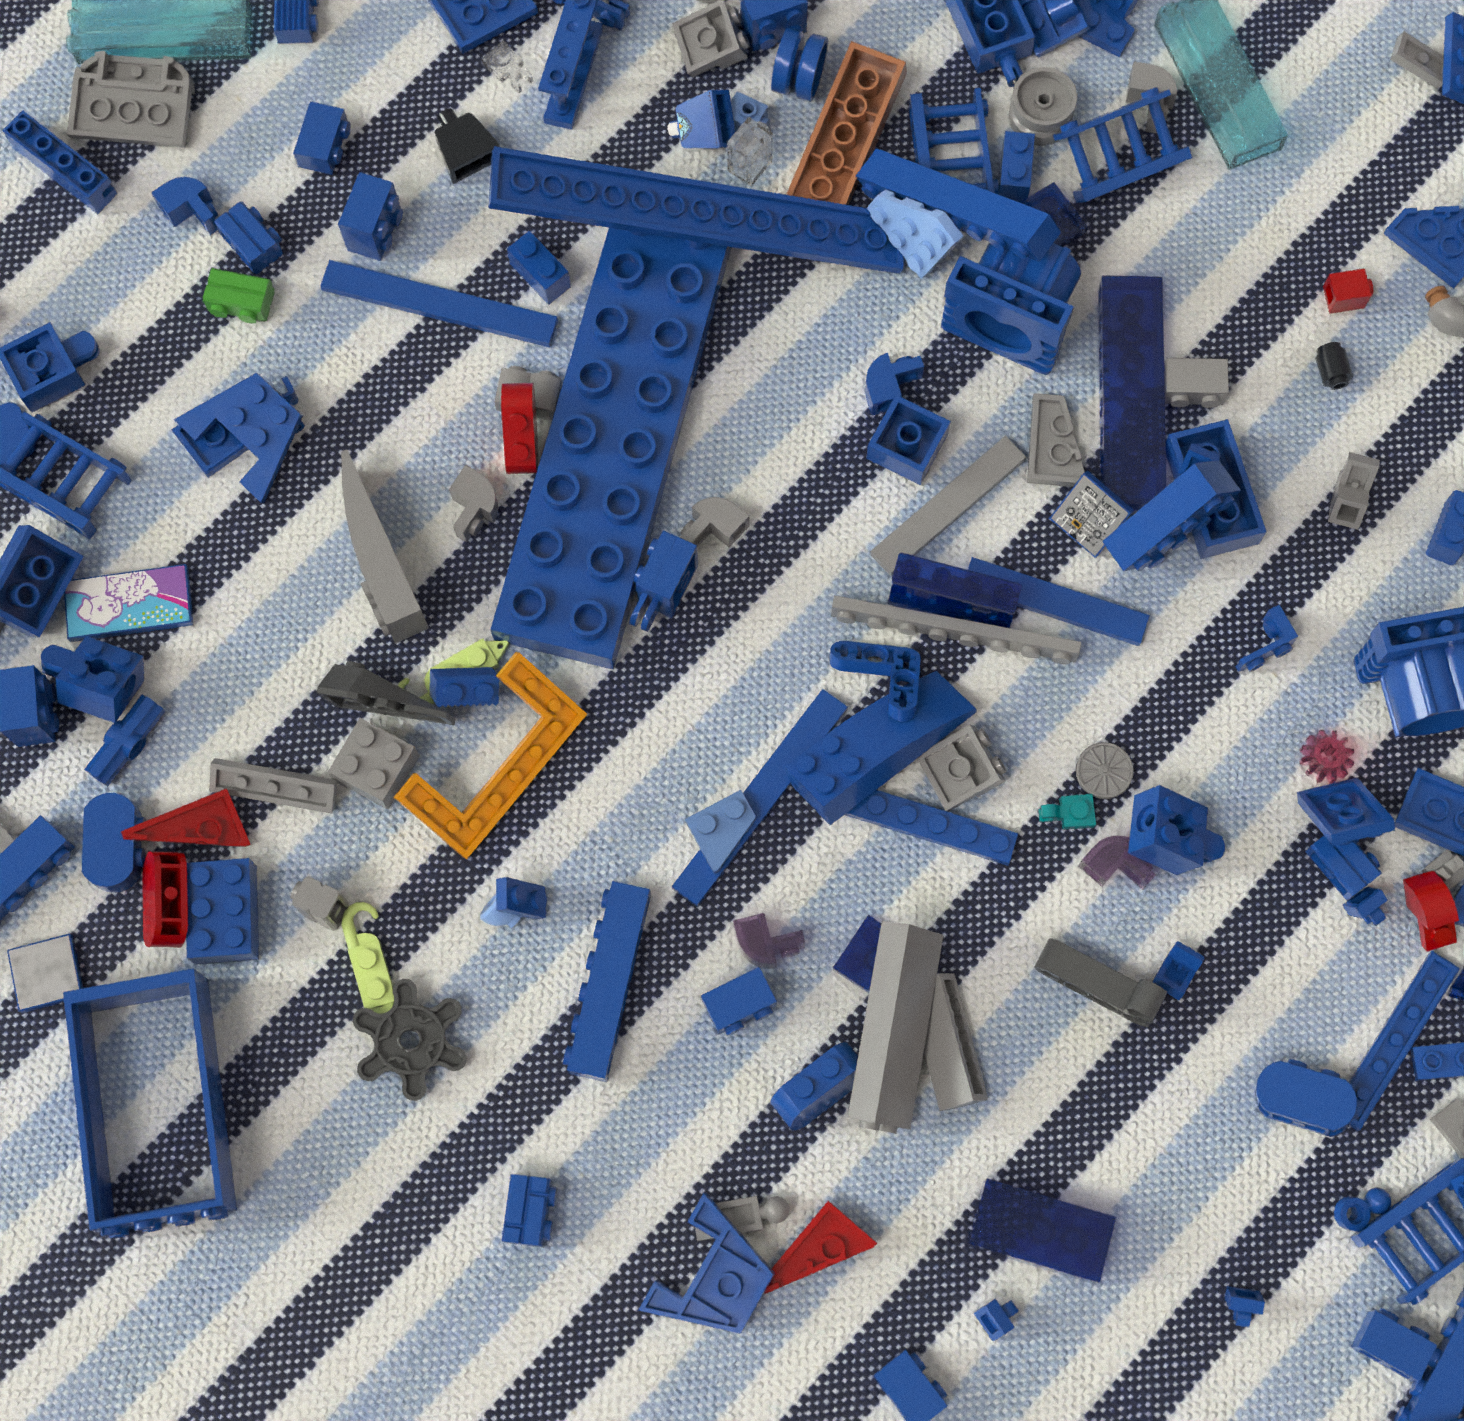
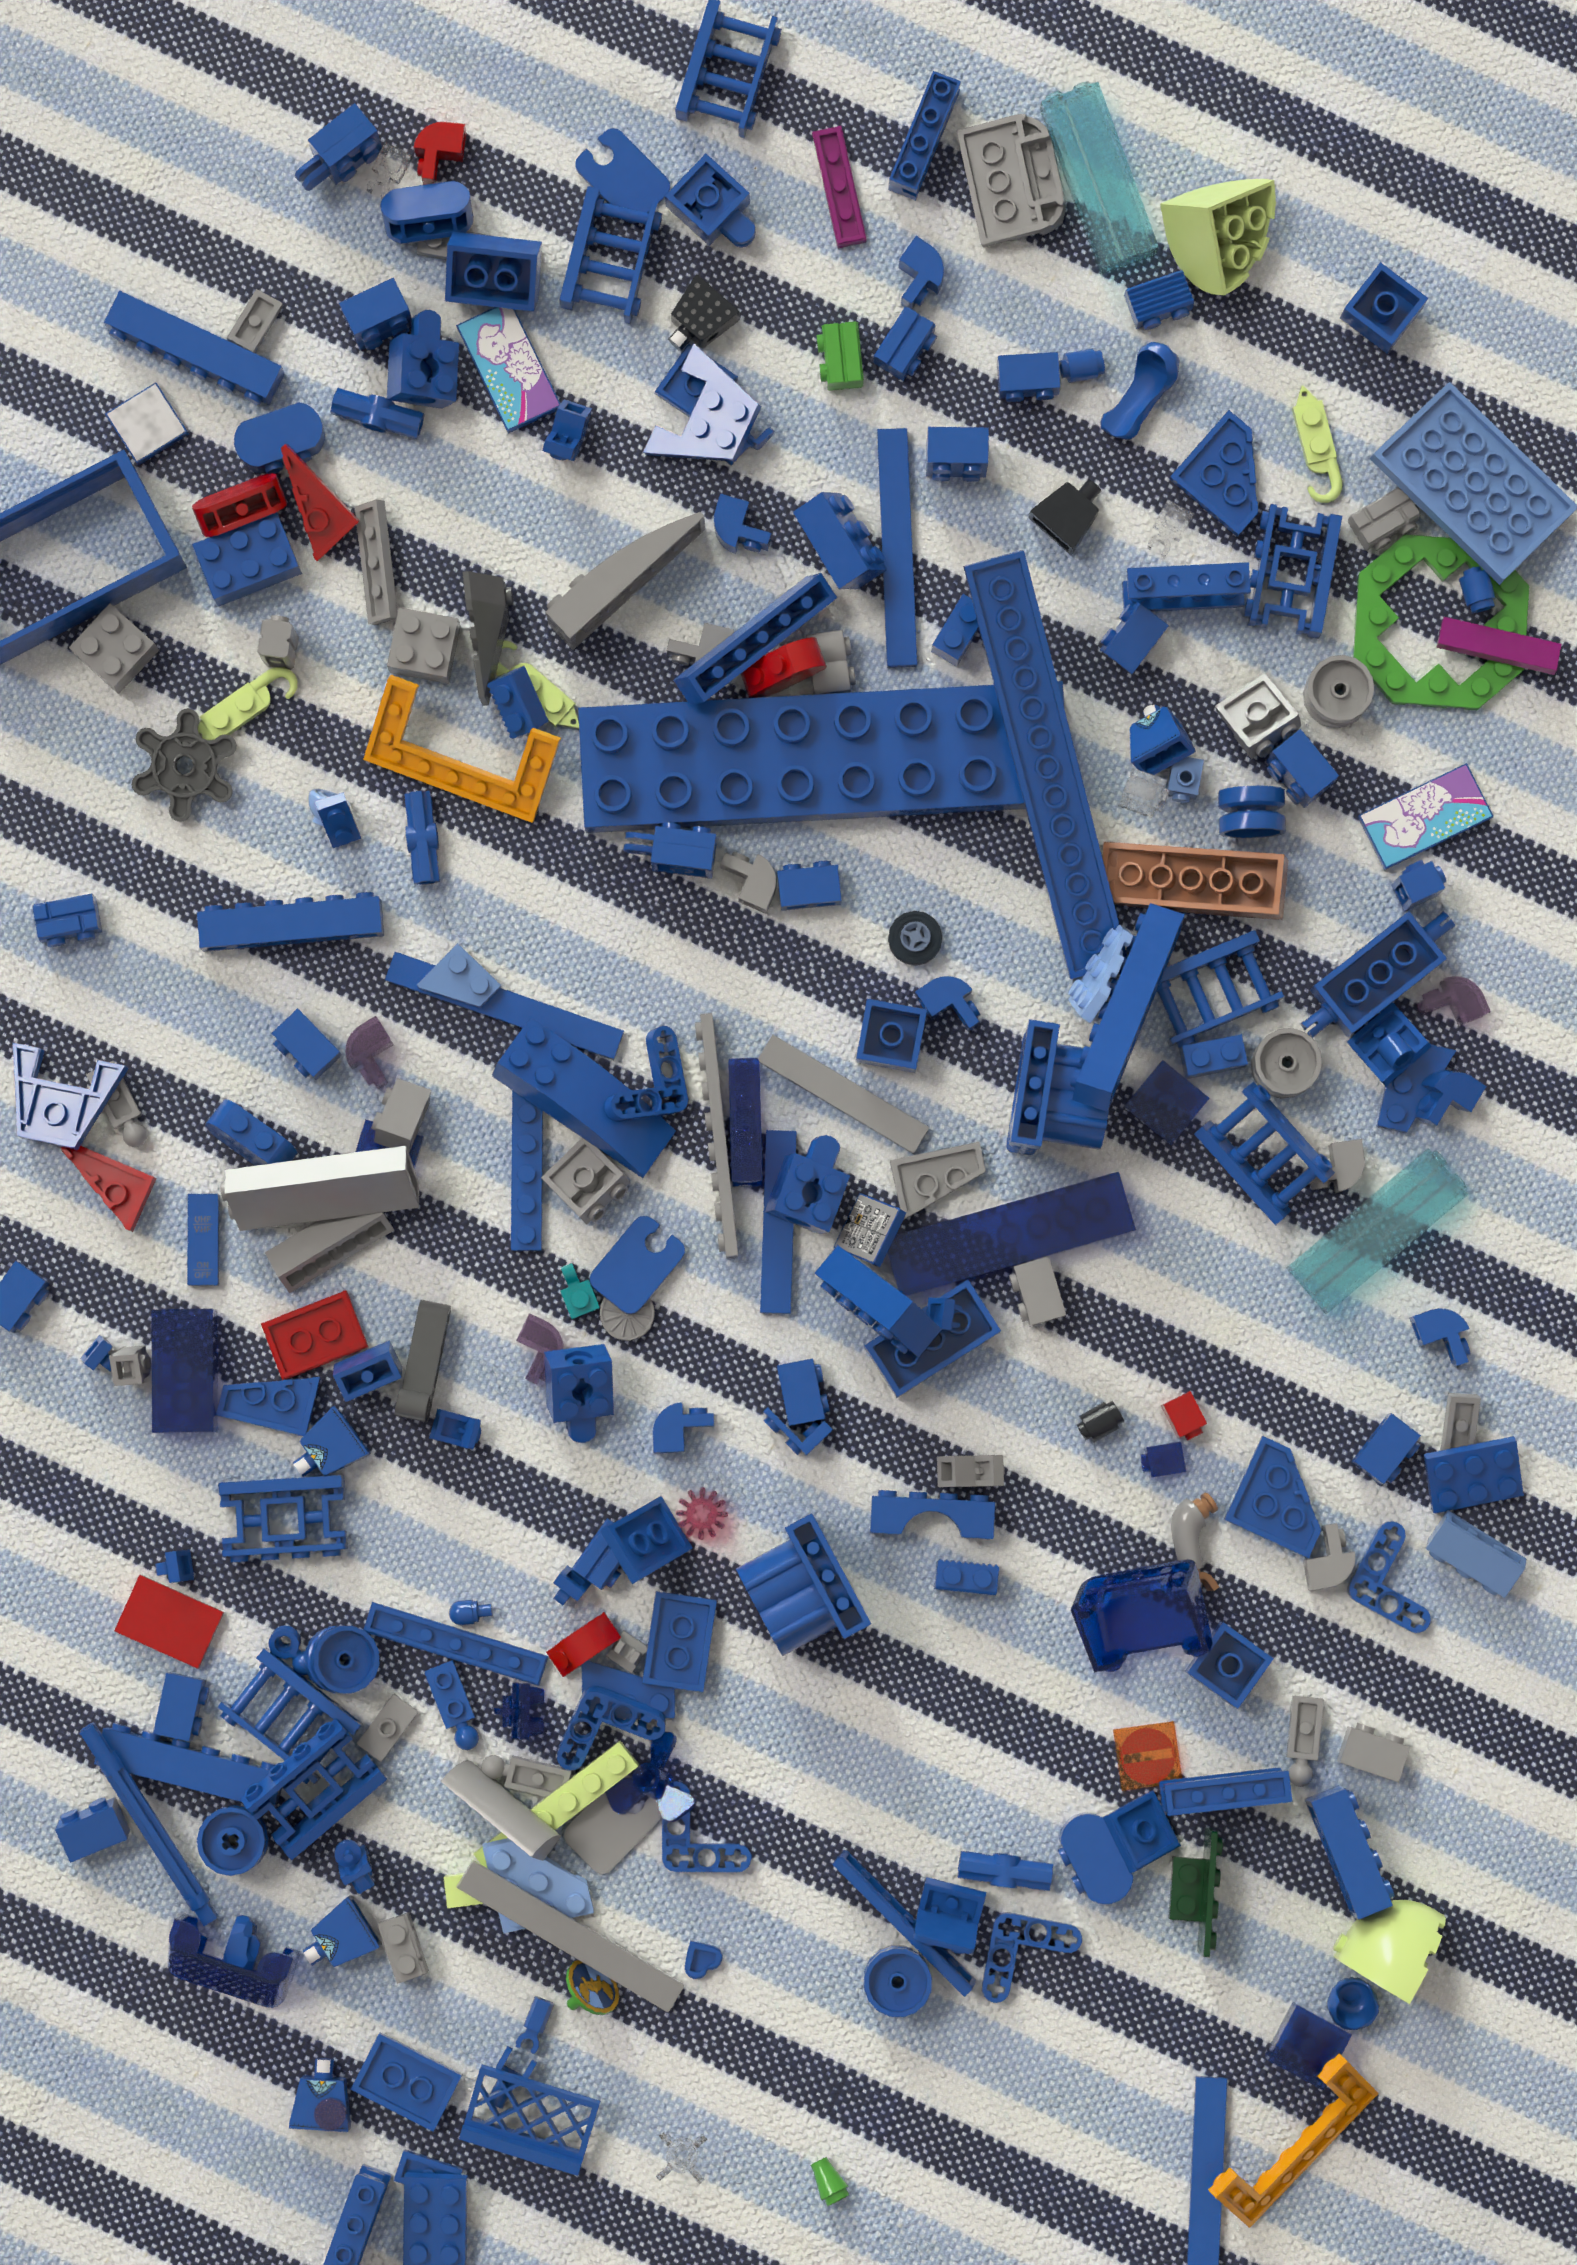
camera: 70 degrees right, 10 degrees up
(77, 254) = (839, 187): none -> magenta tile
(148, 408) = (701, 315): none -> black torso
(213, 563) = (567, 431): none -> blue brick
(263, 1075) = (114, 648): none -> light grey brick
(330, 88) = (1082, 365): none -> blue brick
(360, 32) = (1153, 375): none -> blue hair
(363, 442) = (731, 529): none -> blue brick
(414, 340) = (840, 540): none -> blue brick
(483, 443) = (755, 638): none -> blue brick
(565, 824) = (422, 837): none -> blue piece
(600, 119) = (1133, 636): none -> blue brick
(738, 472) = (809, 886): none -> blue brick
(816, 384) = (918, 927): none -> black wheel
(843, 926) = (402, 1114): none -> light grey brick
(906, 1172) = (203, 1240): none -> blue tile
(1020, 1286) = (136, 1365): none -> light grey brick
(1022, 557) = (809, 1187): none -> blue brick
(1038, 1087) = (314, 1335): none -> red tile
(1063, 754) = (632, 1272): none -> blue piece
(1094, 1040) = (367, 1371): none -> blue brick
(1099, 1151) = (273, 1405): none -> blue wing
(1159, 1103) = (330, 1445): none -> blue torso
(1193, 1168) = (282, 1494): none -> blue fence
(1231, 626) = (801, 1392): none -> blue brick
(1233, 761) = (670, 1425): none -> blue brick
(1298, 1331) = (169, 1621): none -> red tile
(1306, 1097) = (374, 1573): blue brick -> none
(1327, 49) = (1444, 1325): none -> blue brick
(1367, 1015) = (468, 1612): none -> blue cylinder
(1375, 576) = (972, 1517): none -> blue arch
(1384, 323) = (1163, 1460): none -> clear blue bracket
(1389, 1156) = (358, 1652): none -> blue wheel
(1426, 129) = (1387, 1449): none -> blue brick

